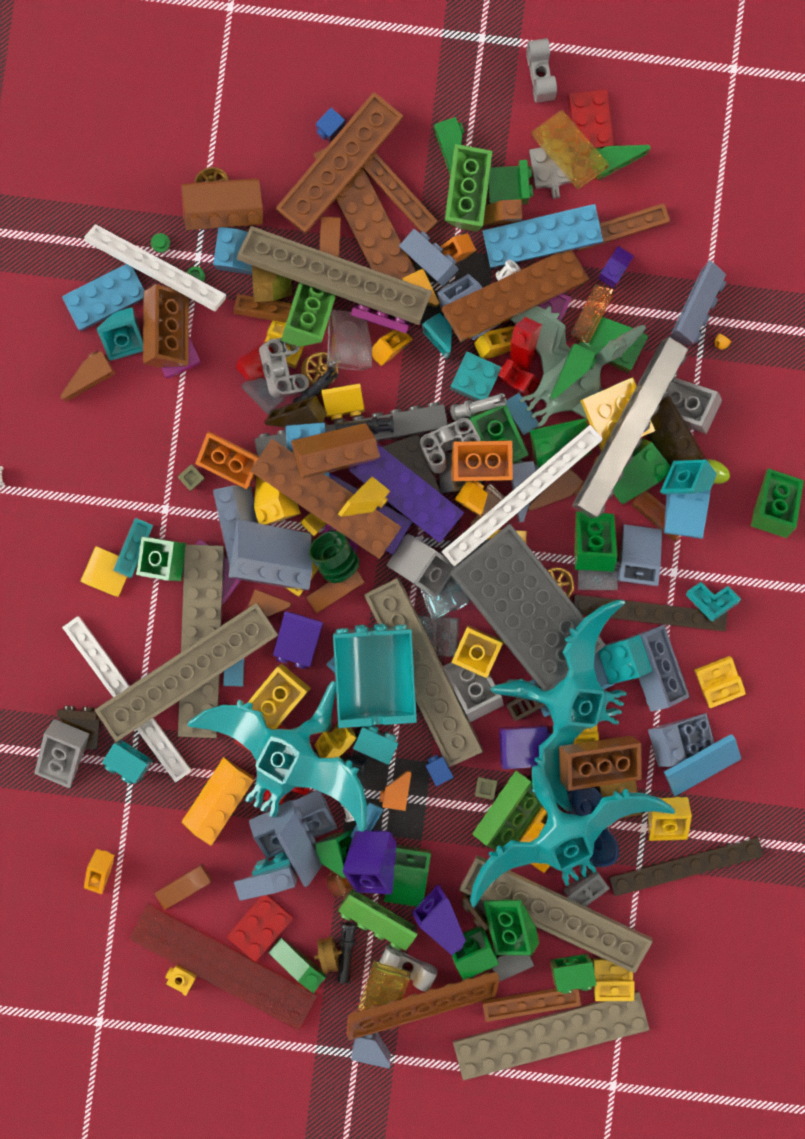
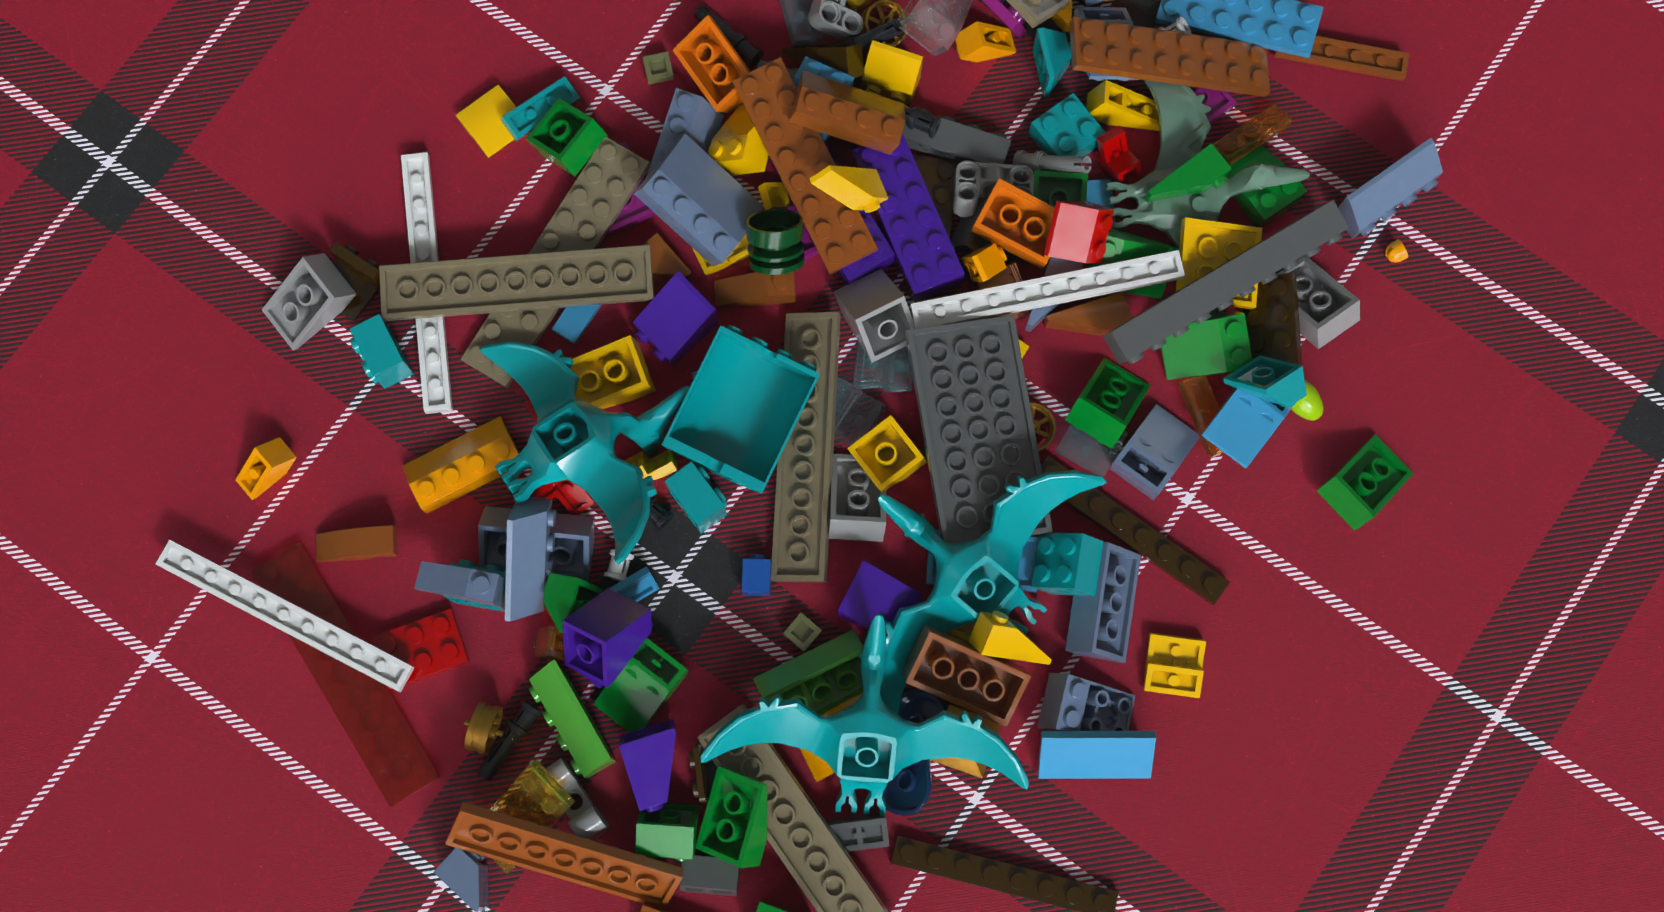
camera: 30 degrees right, 10 degrees down
(167, 956) = (285, 616): none -> white plate
(187, 979) = (292, 661): yellow brick -> none
(232, 433) = (740, 42): none -> black pin
(298, 965) = (439, 723): slope -> none
(396, 792) = (688, 574): orange slope -> none
(512, 709) = (891, 557): dark brown slope -> none
(523, 448) = (1079, 231): none -> slope
(524, 342) = (1149, 116): red slope -> none
(613, 728) = (1000, 638): none -> yellow slope
(615, 267) = (1308, 96): dark purple slope -> none
(670, 826) = (1013, 808): yellow slope -> none
(713, 605) = (1217, 561): teal plate -> none

